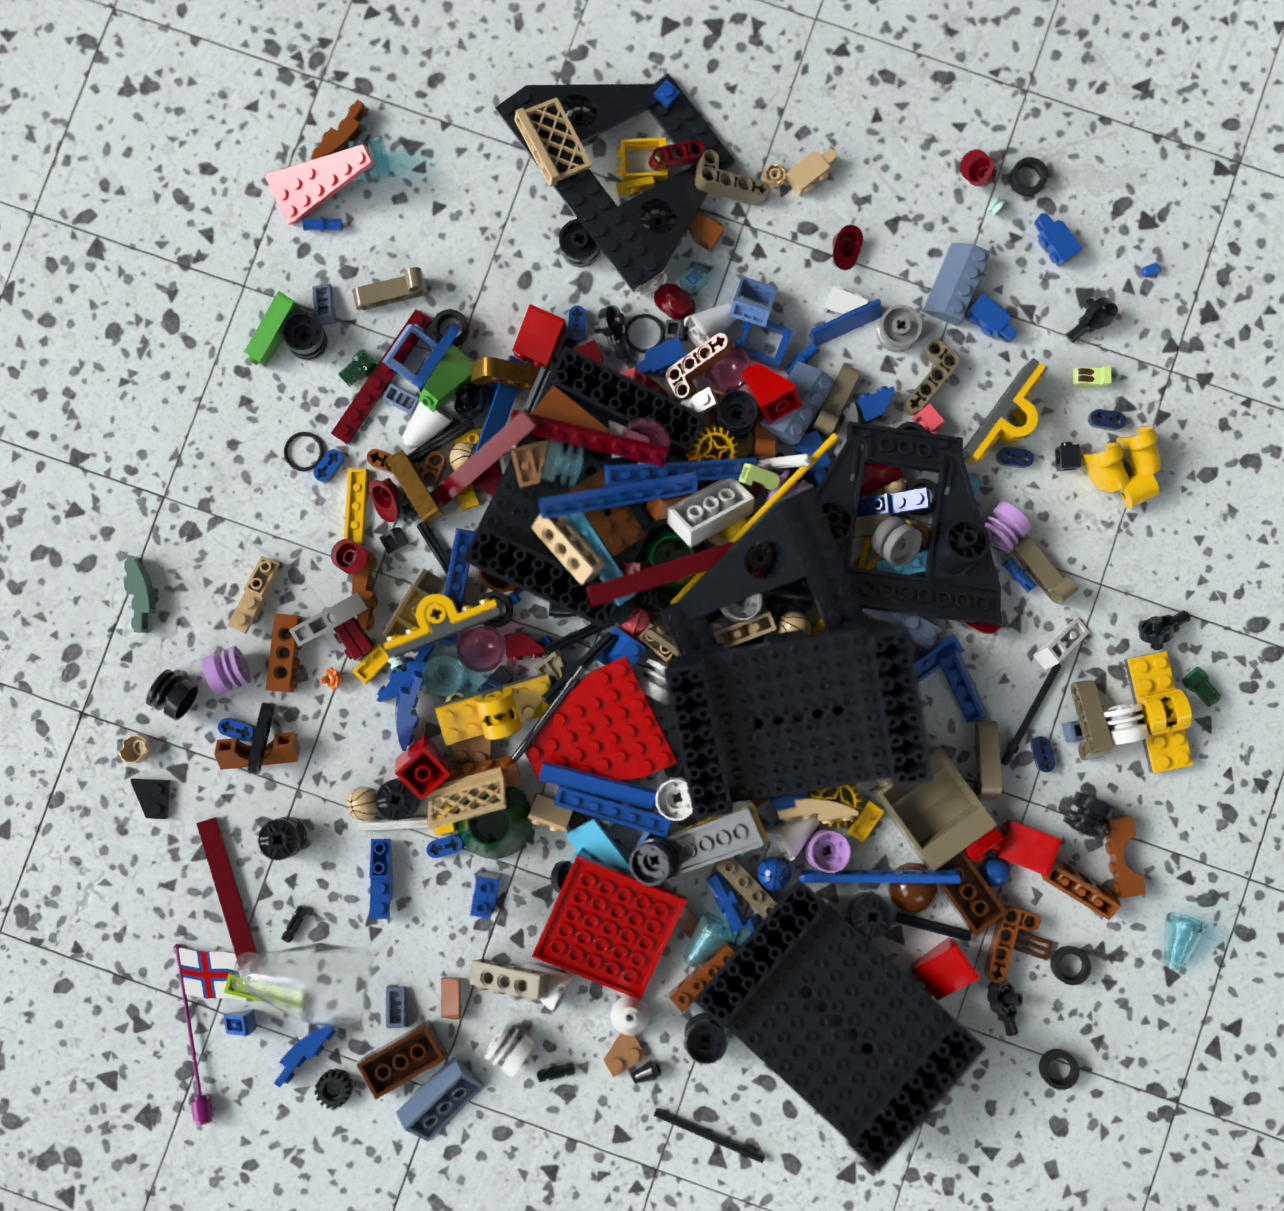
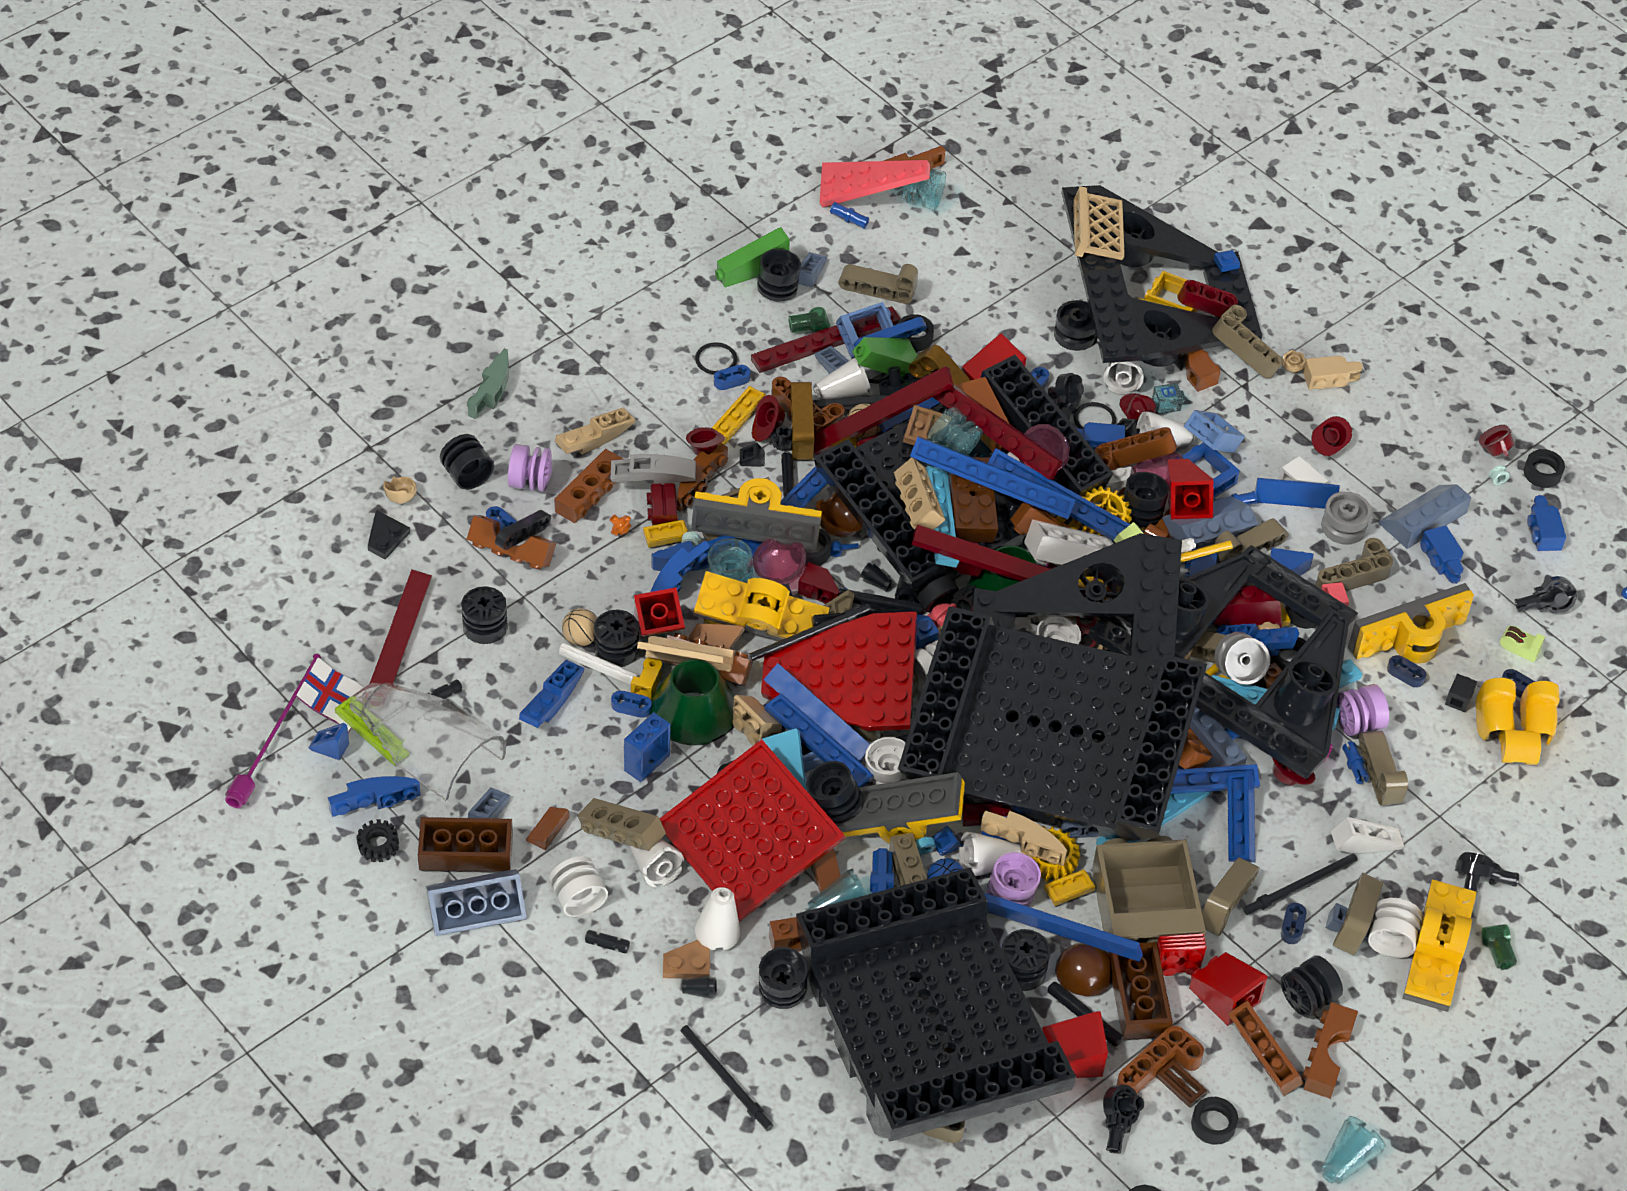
camera: 25 degrees right, 35 degrees down
(995, 871) = (1182, 998): blue hair -> none

